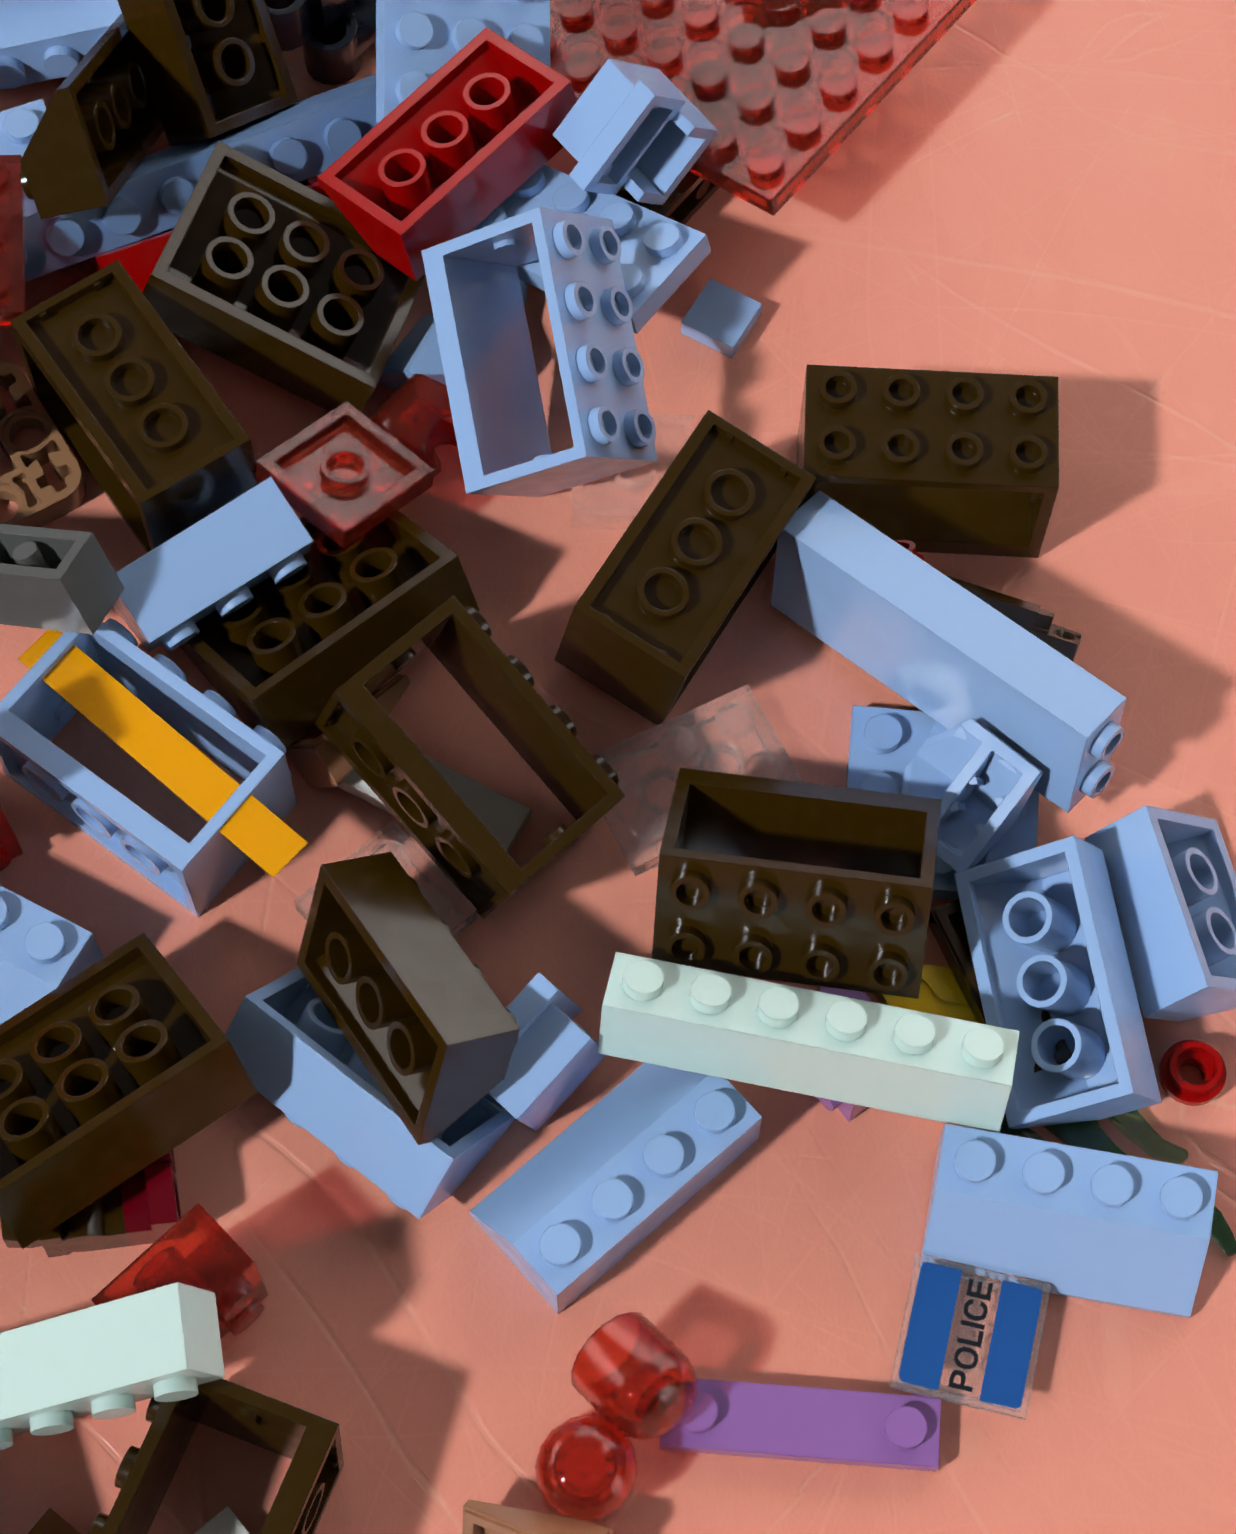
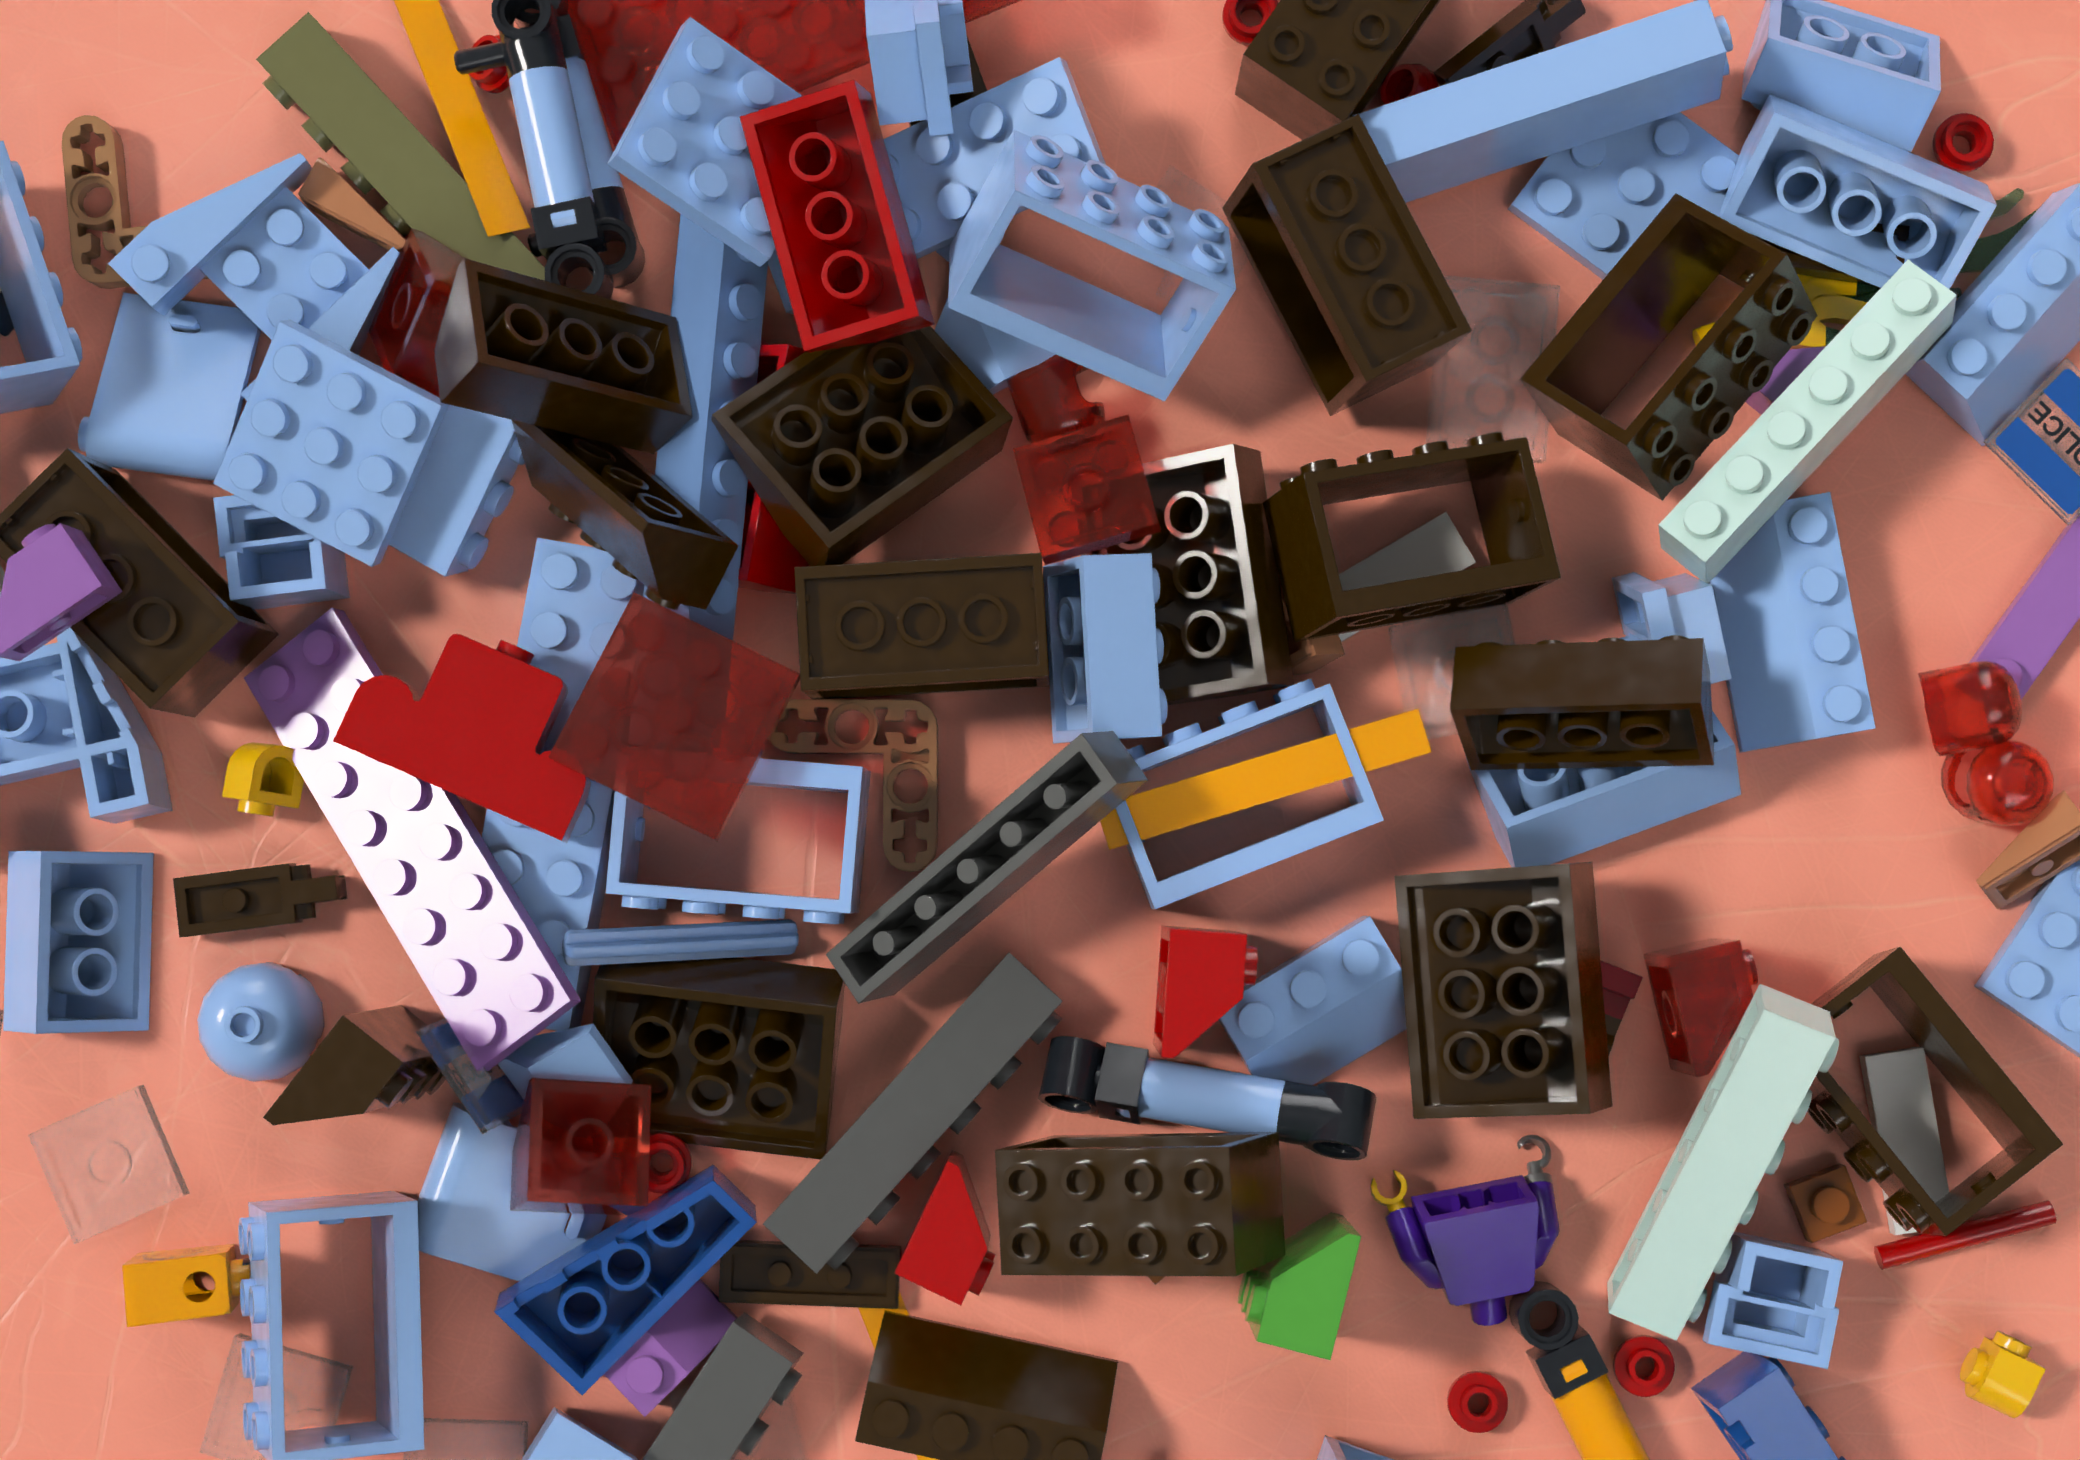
camera: 50 degrees left, 20 degrees up
(721, 318) = (1097, 82): light blue tile -> none
(979, 785) = (1651, 161): light blue slope -> none

